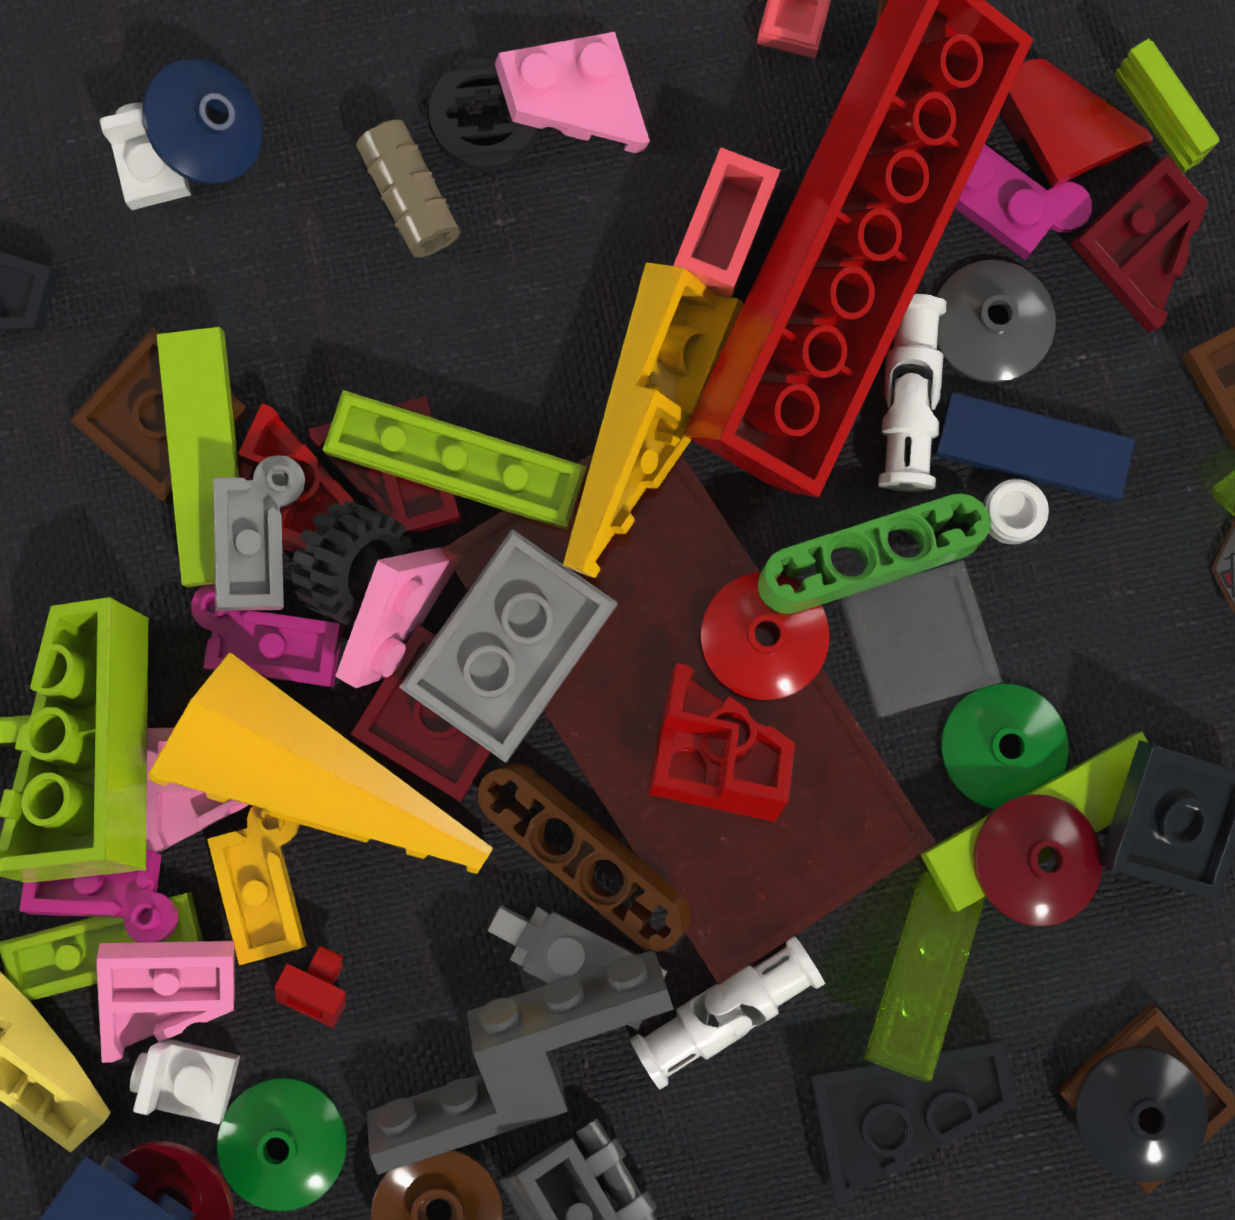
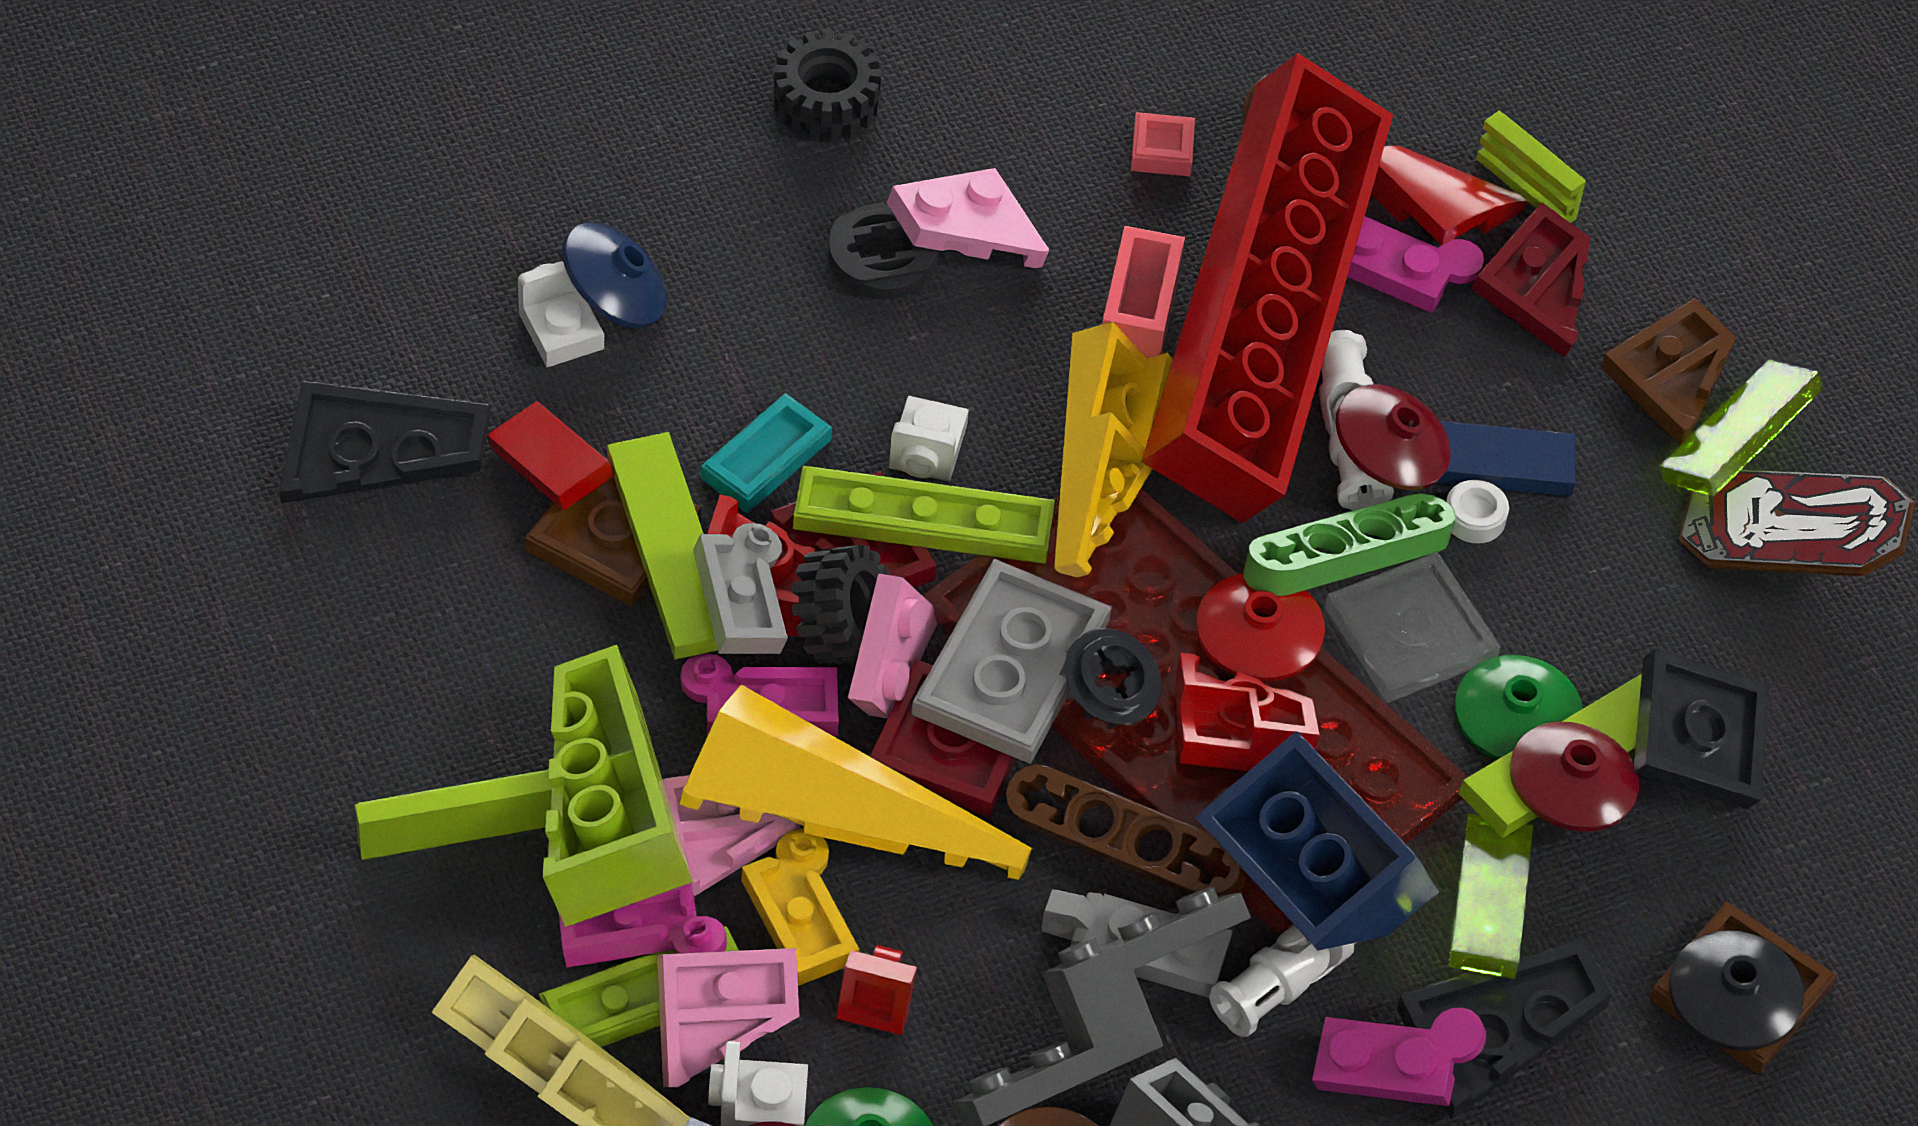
camera: 15 degrees left, 30 degrees down
(106, 330) = (550, 455): none -> red tile
(324, 346) = (766, 452): none -> teal tile
(408, 188) = (824, 310): dark tan axle -> none
(485, 353) = (928, 439): none -> white bracket
(623, 704) = (1112, 653): none -> black gear
(754, 944) = (1317, 849): none -> dark blue slope
(792, 1149) = (1397, 1059): none -> dark pink hinge
(925, 435) = (1393, 437): none -> dark red dish
(977, 344) = (1435, 375): dark grey dish -> none

